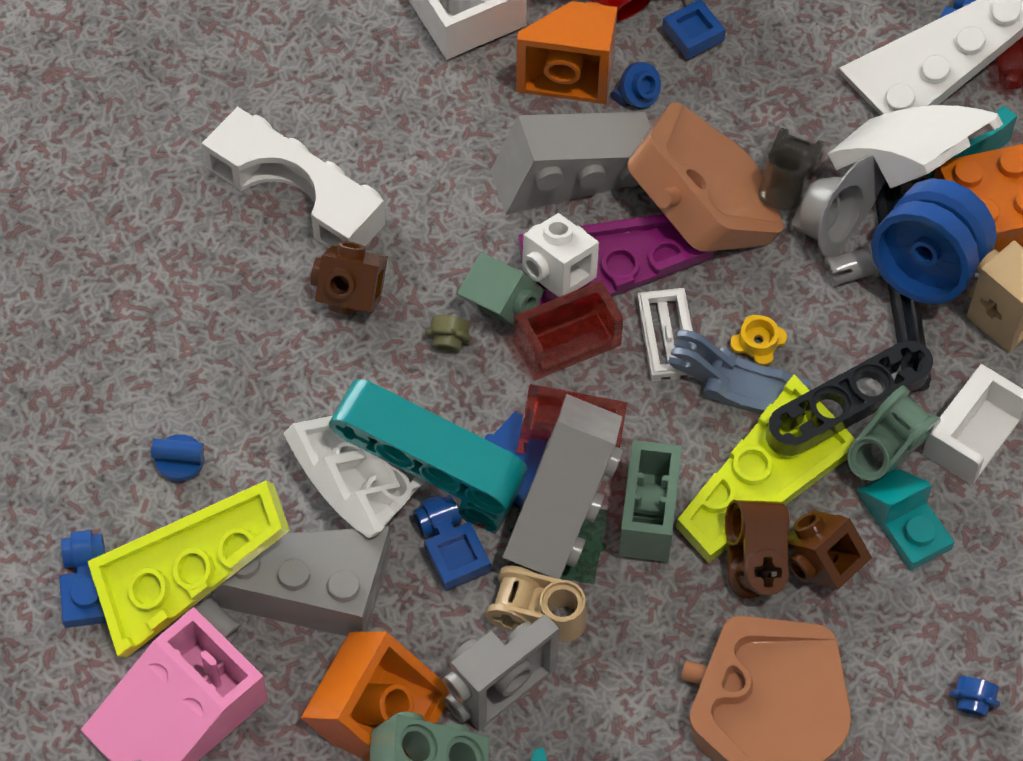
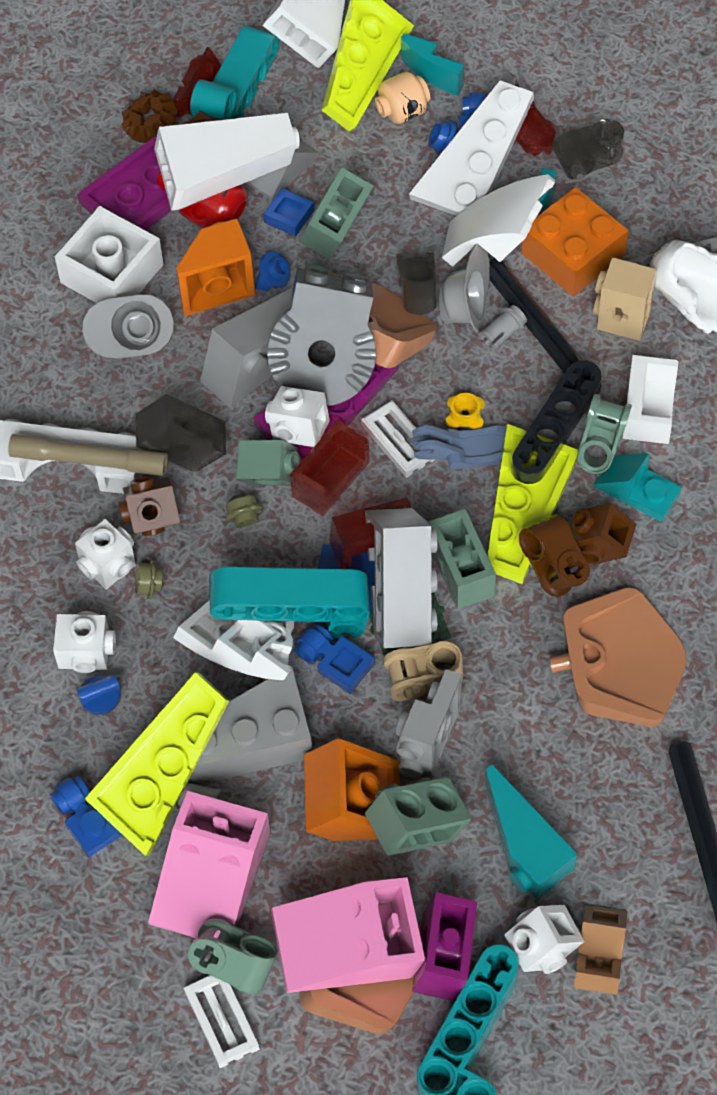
camera: 25 degrees left, 0 degrees up
(191, 391) = (83, 642): none -> white brick
(272, 307) = (105, 553): none -> white brick
(303, 357) = (148, 579): none -> olive plate
(352, 218) = (44, 449): none -> dark tan piece
(424, 215) = (181, 431): none -> clear smoke brick
(440, 73) = (128, 326): none -> light grey piece
(660, 156) = (330, 311): none -> piece
(740, 52) = (335, 213): none -> sand green brick
(914, 18) = (442, 135): none -> blue plate
(933, 241) = (555, 284): blue wheel -> none

